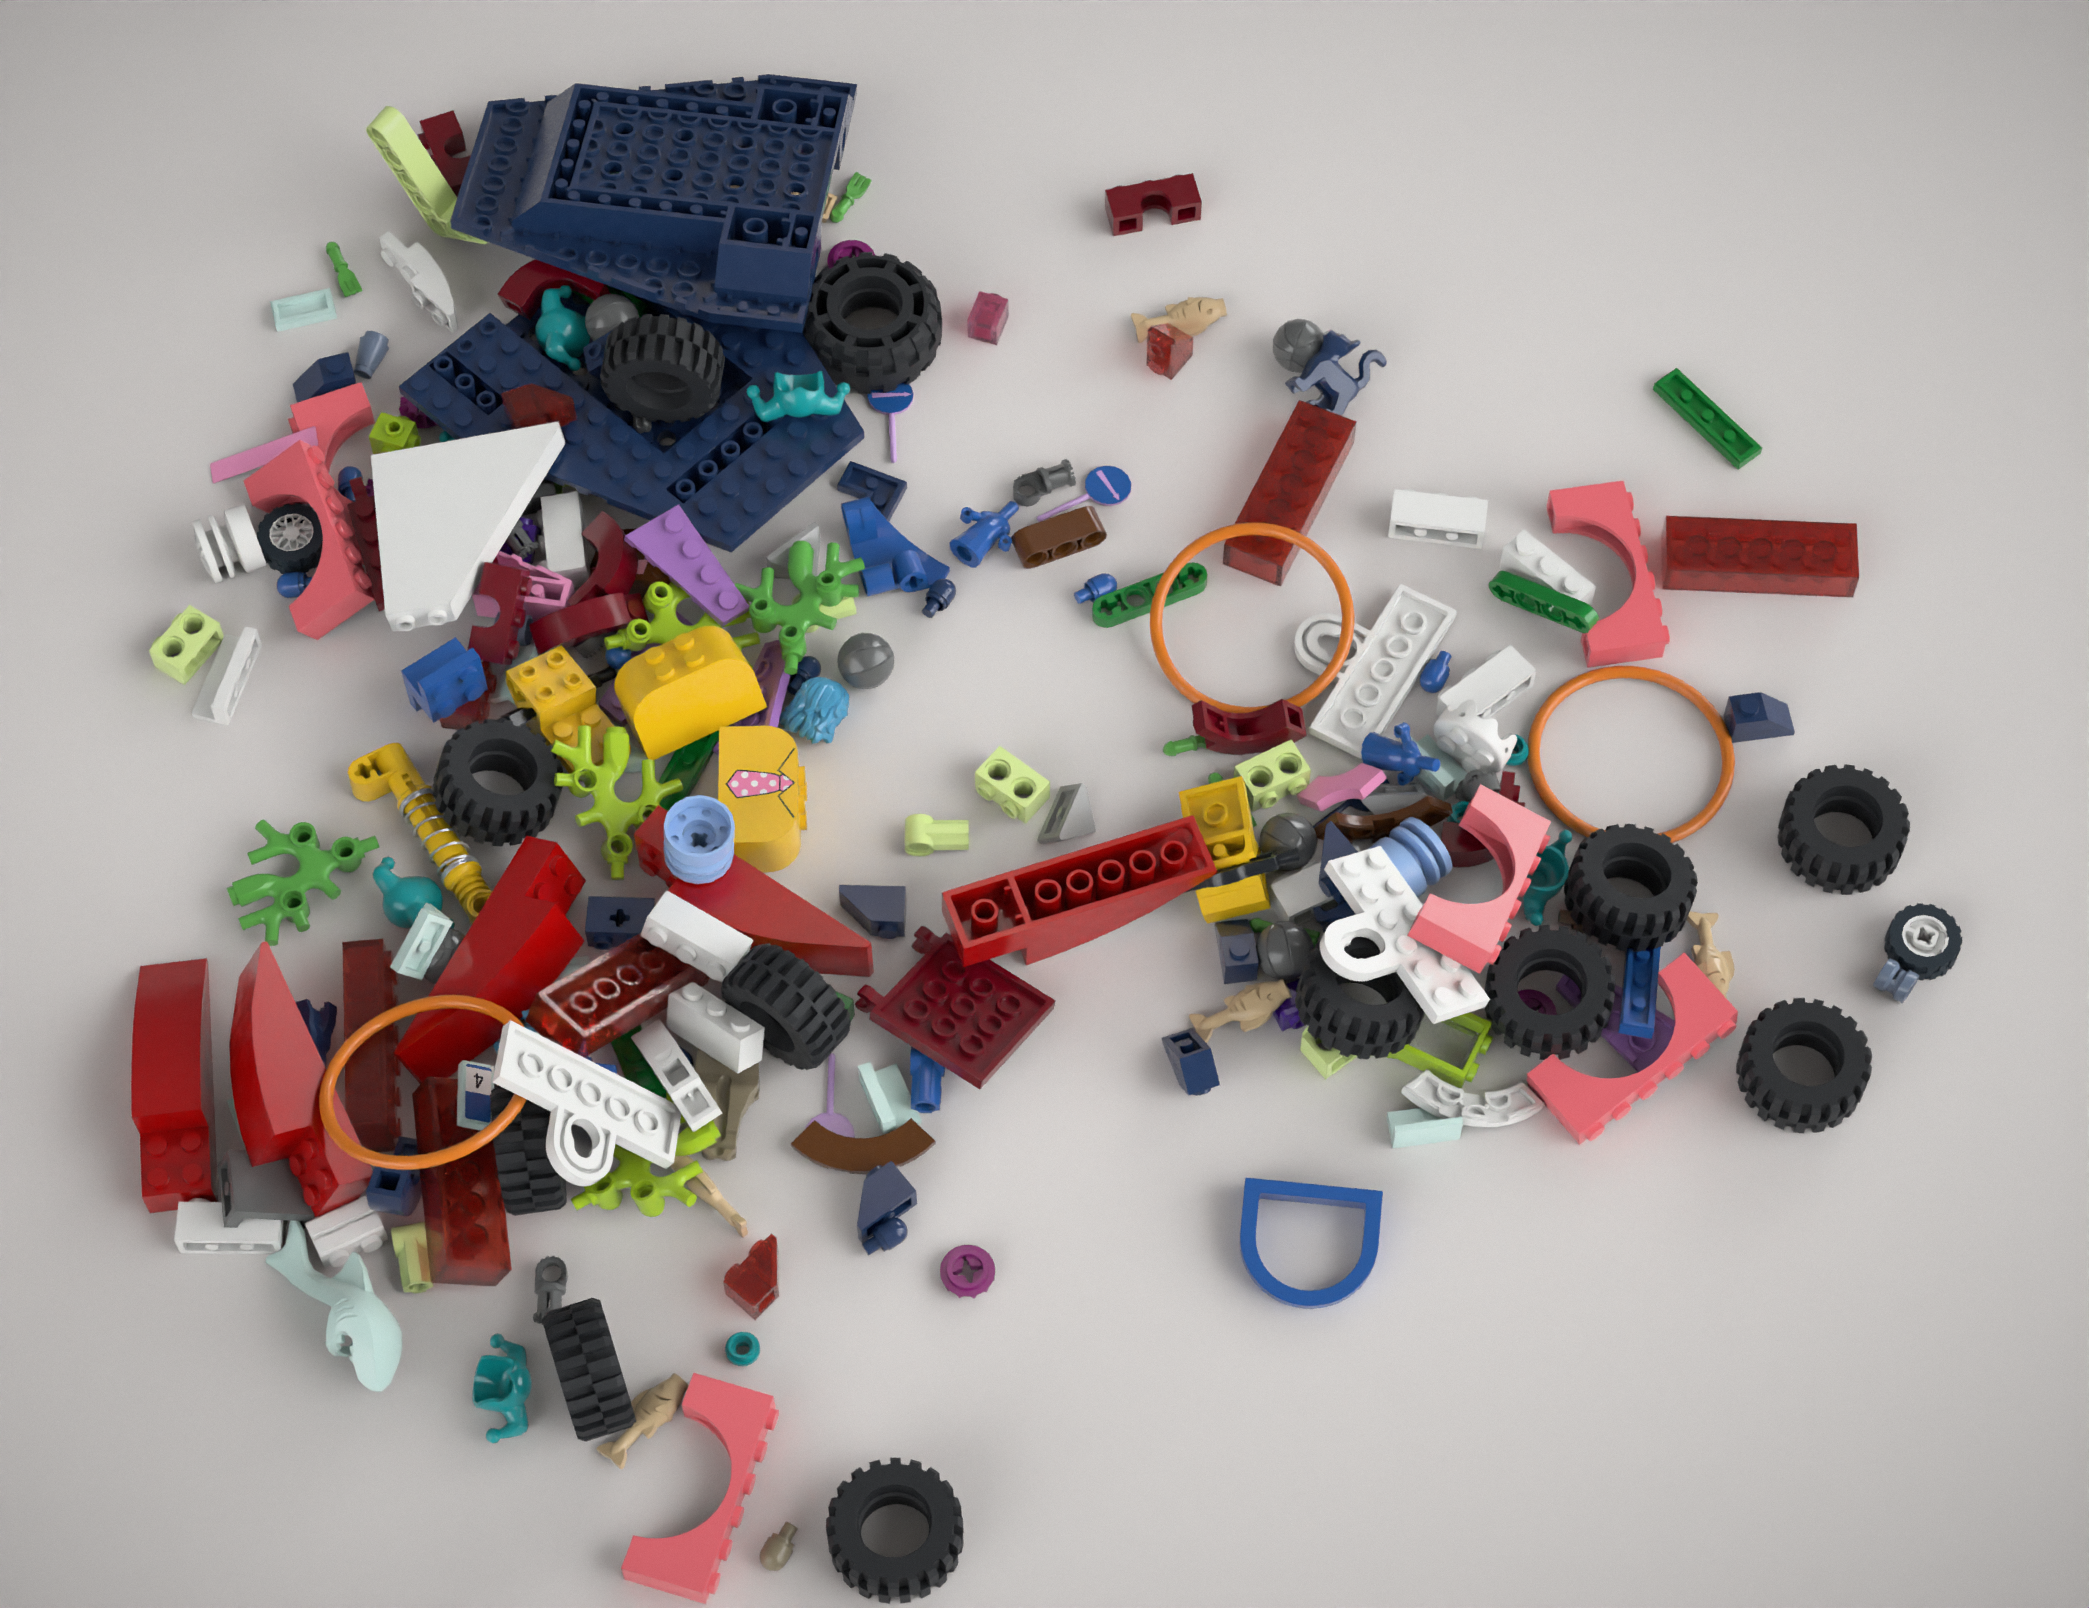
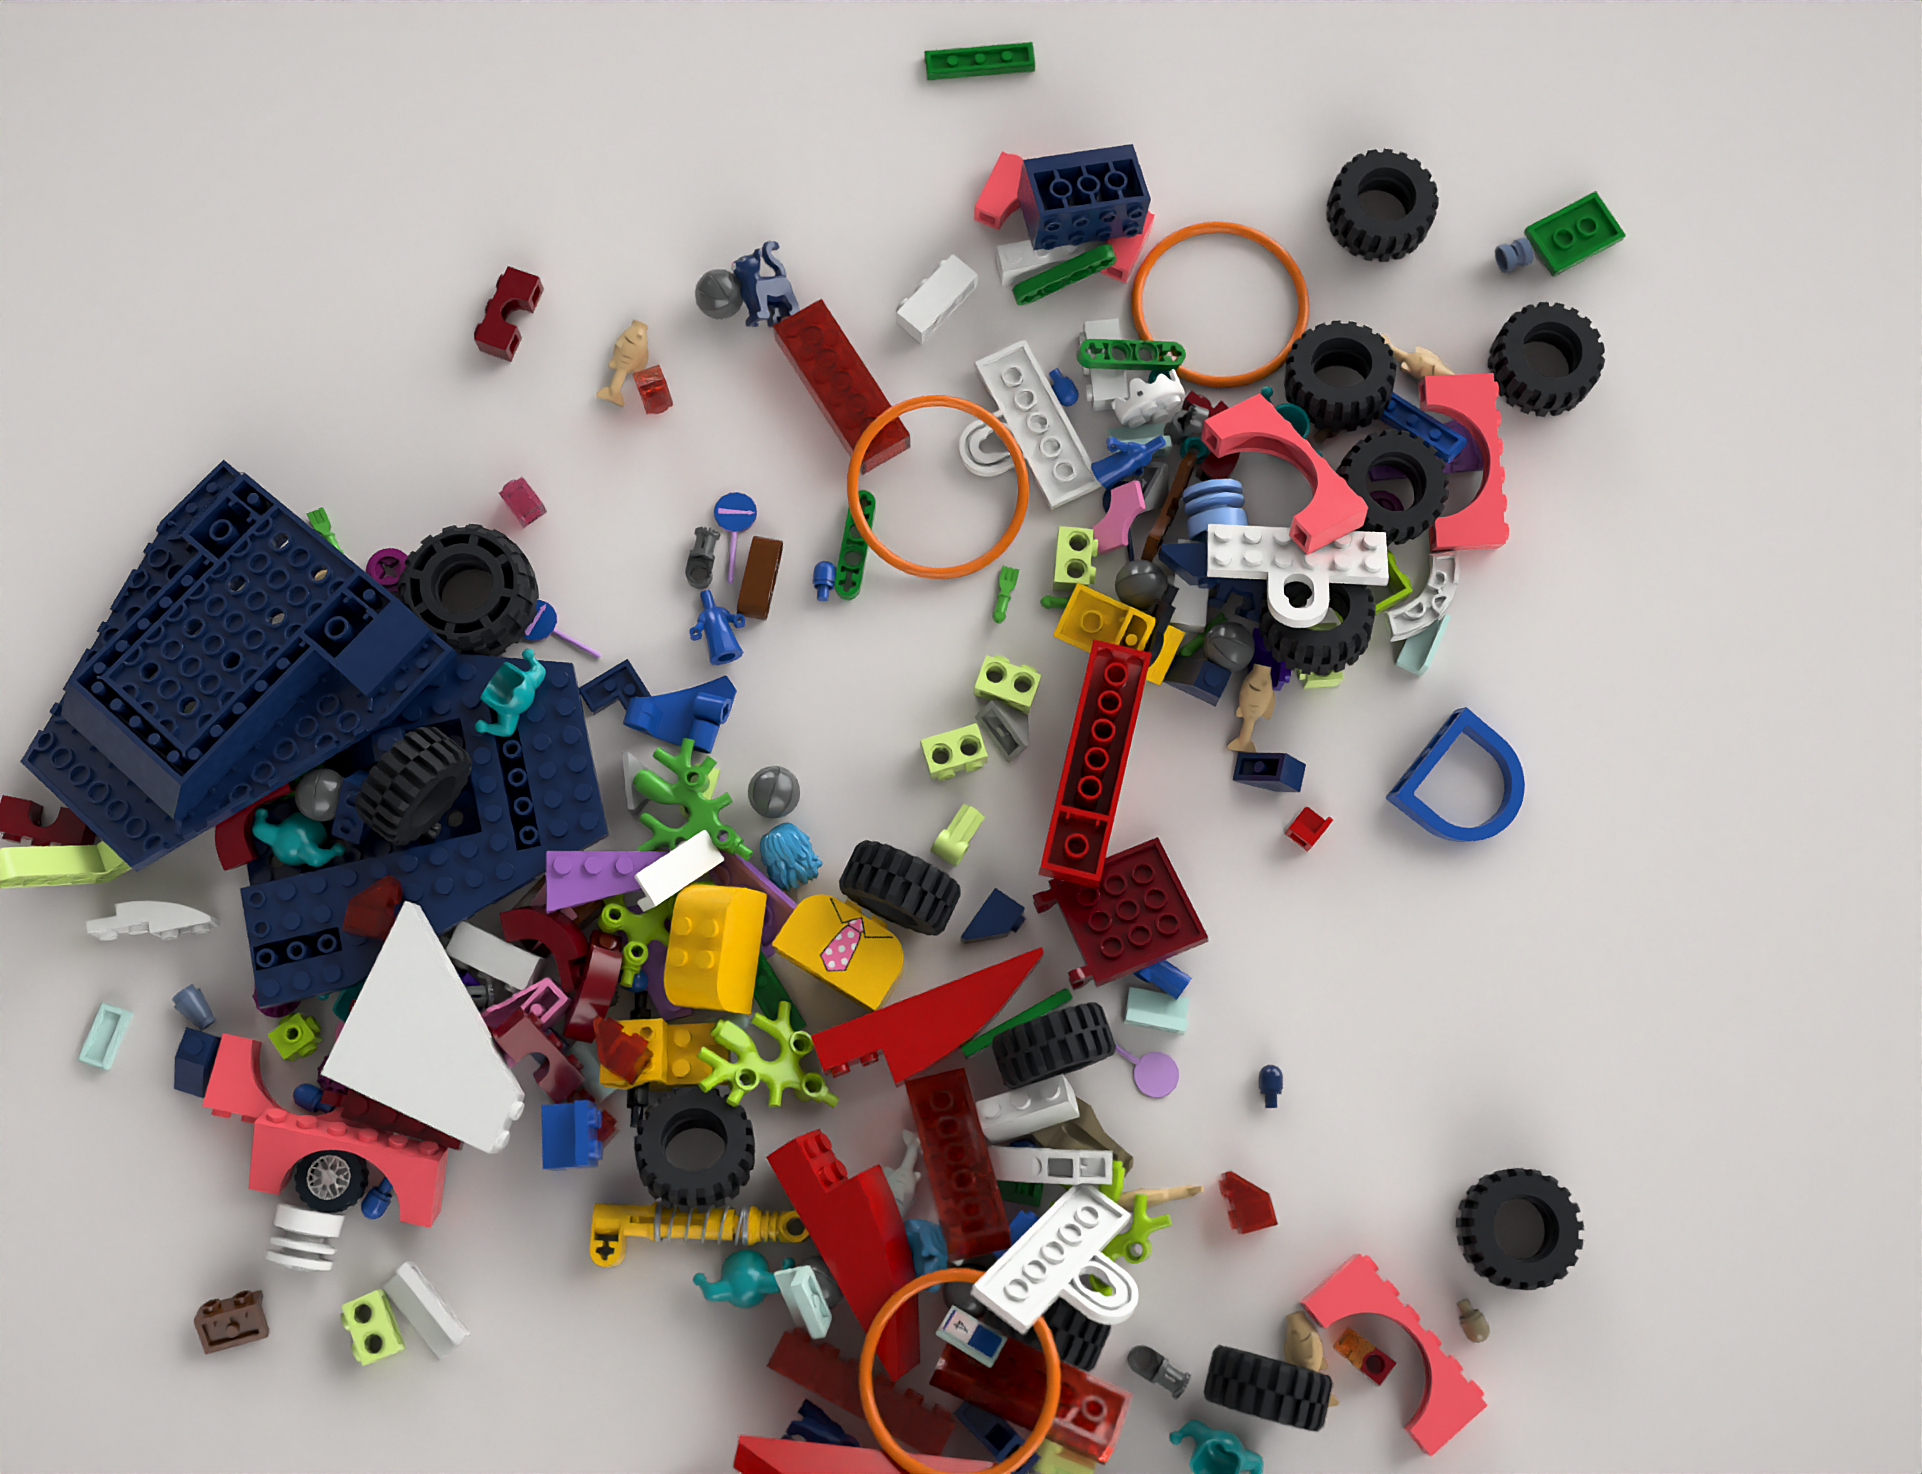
camera: 60 degrees left, 15 degrees up
(124, 540) = (231, 1321): none -> reddish brown bracket
(259, 455) = (232, 1155): bright pink sticker -> none
(290, 891) = (668, 1346): bright green plant -> none
(346, 278) = (101, 982): bright green piece -> none
(540, 662) = (619, 1052): none -> clear red slope
(607, 914) = (878, 1105): dark blue brick -> none
(679, 1466) = (1364, 1356): none -> leg
(695, 936) = (949, 1078): white brick -> none
(699, 839) = (882, 1008): light blue wheel -> none
(738, 615) = (677, 869): none -> white panel
(742, 1339) = (1305, 1250): teal plate -> none
(807, 668) = (751, 842): dark blue cylinder -> none
(844, 798) = (900, 887): none -> black tyre
(862, 1154) = (1192, 1060): reddish brown tile -> none
(883, 1197) = (1241, 1069): dark blue slope -> none
(939, 597) = (748, 700): dark blue cylinder -> none
(978, 1260) = (1348, 1036): magenta gear -> none
(1108, 791) = (1004, 690): none -> yellowish green brick
(1160, 1129) = (1307, 828): none -> red panel
(1248, 731) = (1026, 548): dark red arch -> none
(1511, 696) = (1130, 349): none -> green beam
(1620, 559) = (1083, 197): none -> dark blue brick
(1757, 717) = (1249, 200): dark blue slope -> none
(1759, 556) = (1129, 95): clear red brick -> none
(1923, 940) = (1494, 216): black wheel -> none
(1967, 1024) = (1574, 233): none -> green plate

